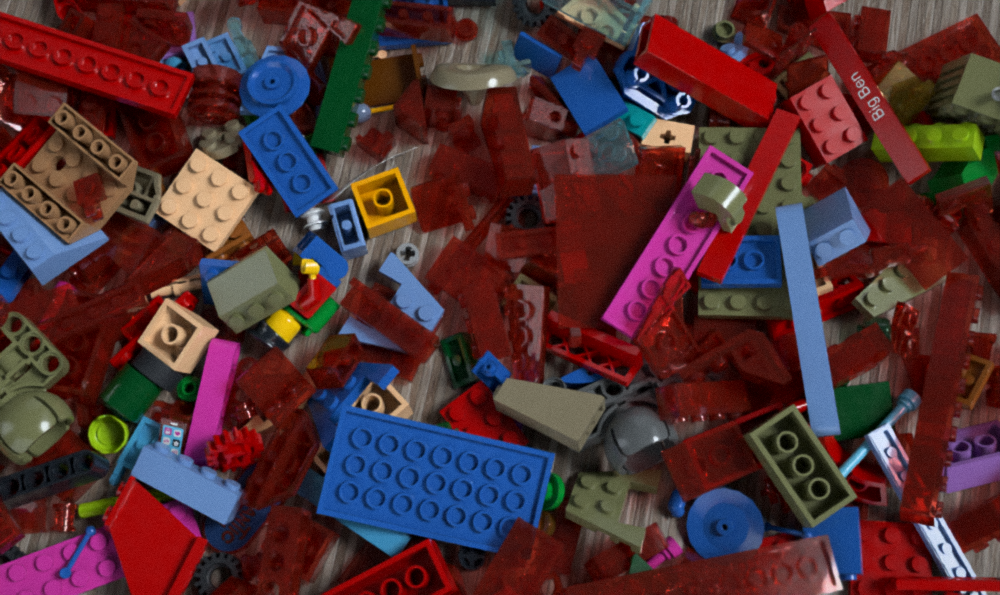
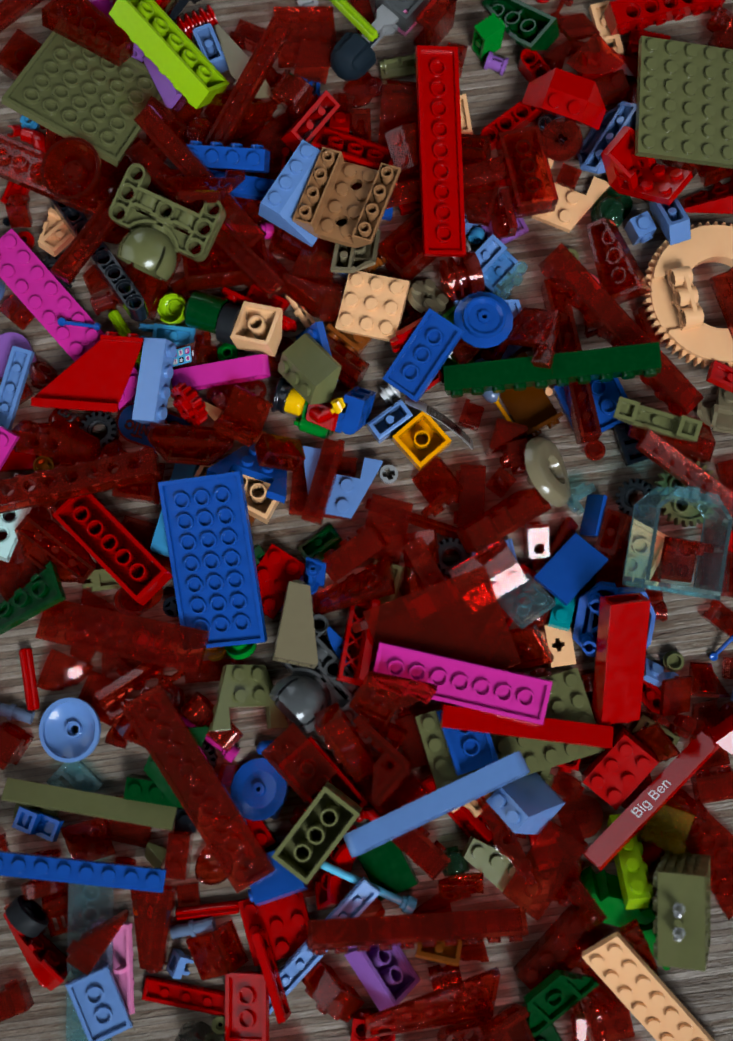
camera: 75 degrees right, 10 degrees up
(89, 194) = (336, 218): clear red plate -> none
(587, 46) = (611, 553): clear red plate -> none
(702, 220) = (487, 698): clear red arm -> none
(721, 198) = (505, 704): olive brick -> none
(806, 534) = (272, 833): blue hinge -> none

